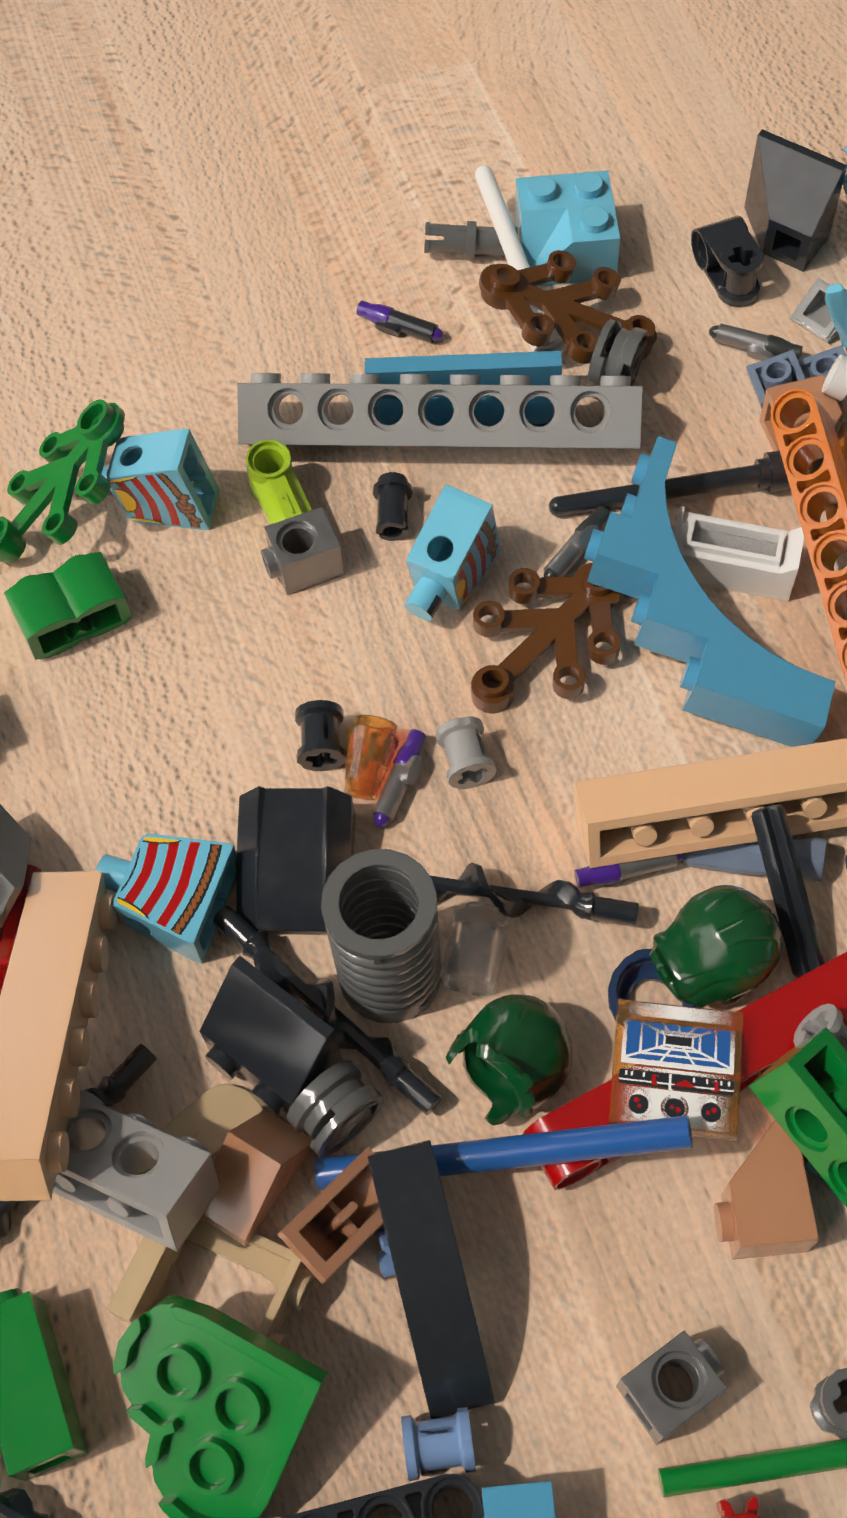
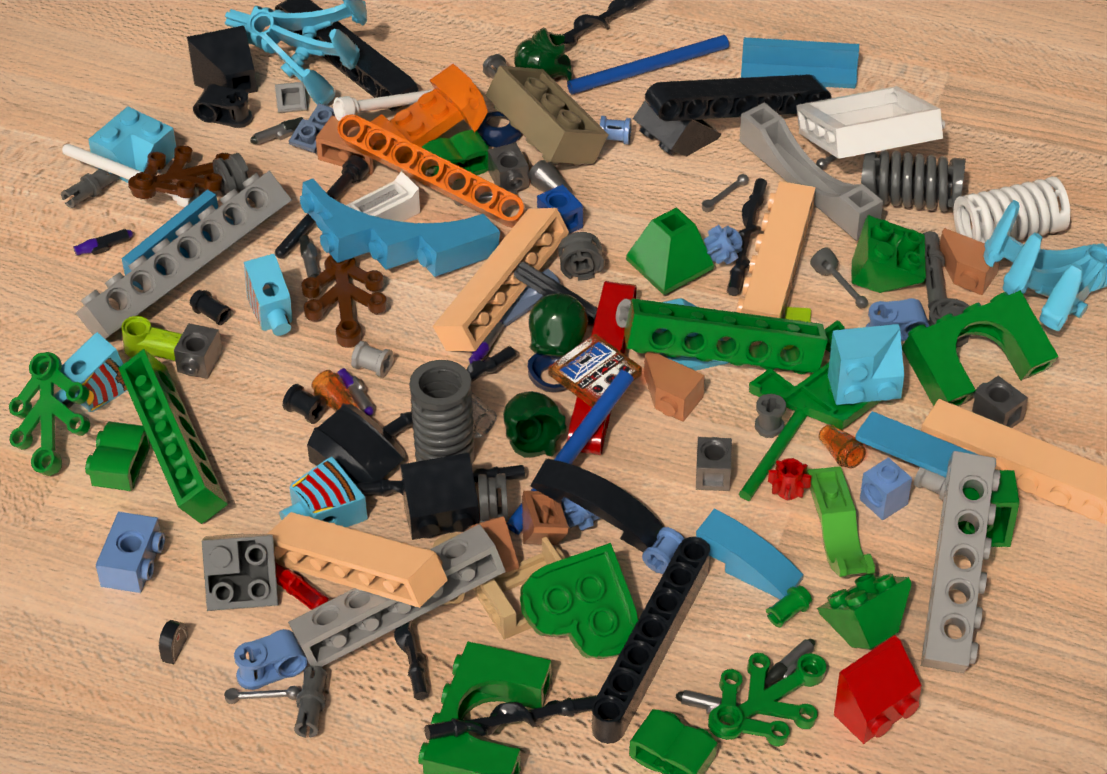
camera: 55 degrees left, 15 degrees down
(126, 639) = (172, 437): none -> green brick

